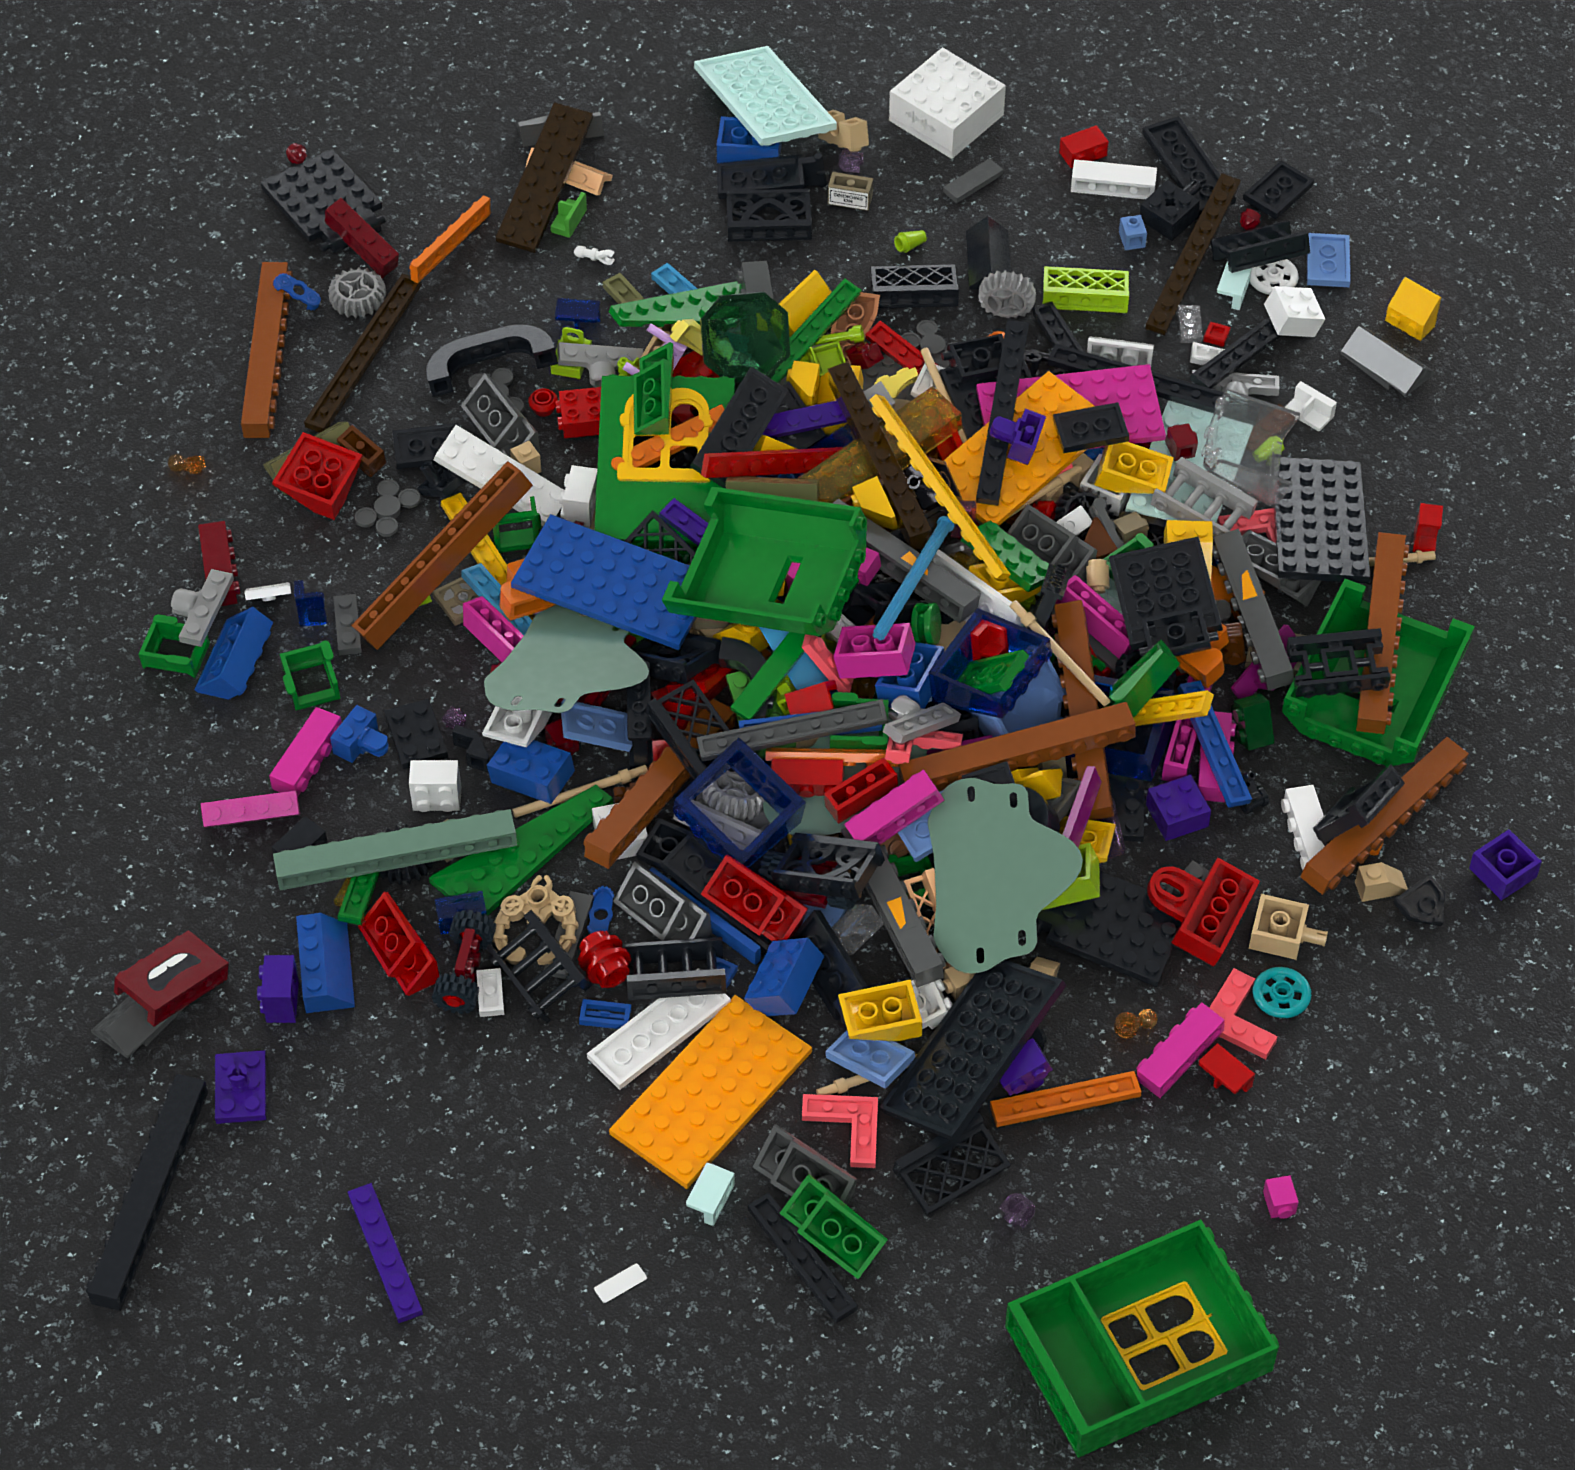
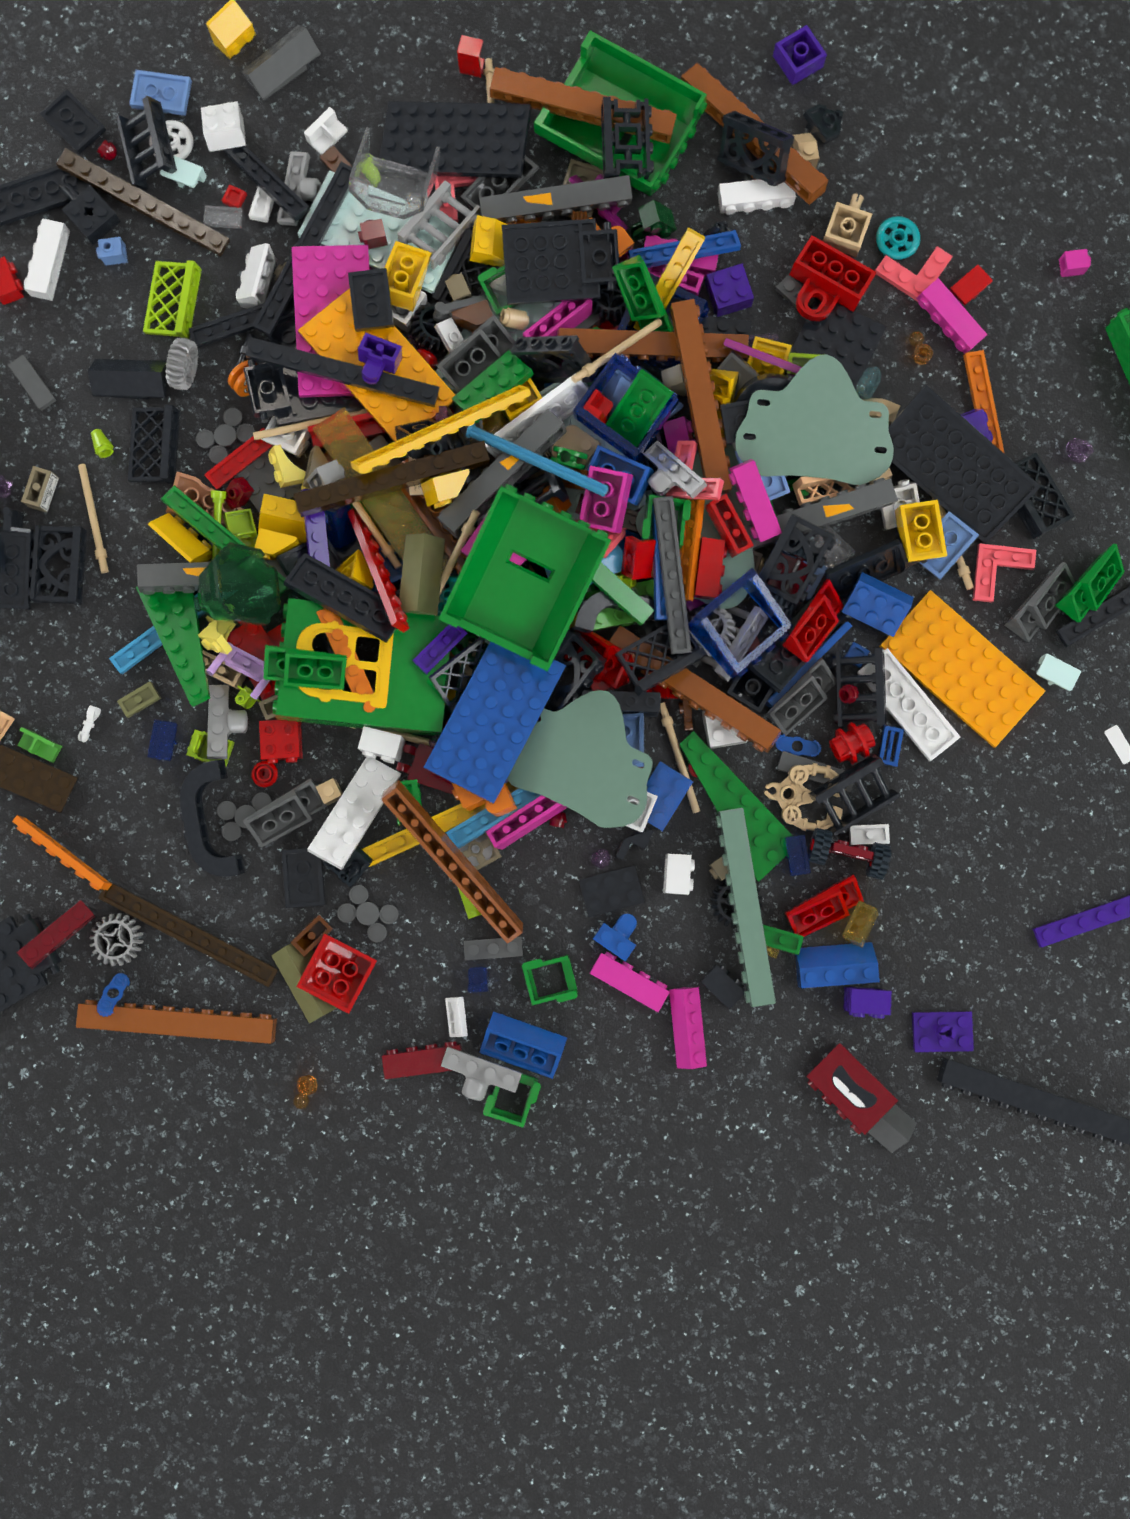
camera: 85 degrees left, 30 degrees up
(375, 981) = (860, 924): none -> clear yellow brick
(666, 948) = (848, 693): none -> dark red plate
(785, 250) = (100, 552): none -> tan bar
(1076, 964) = (868, 382): none -> clear light blue plate

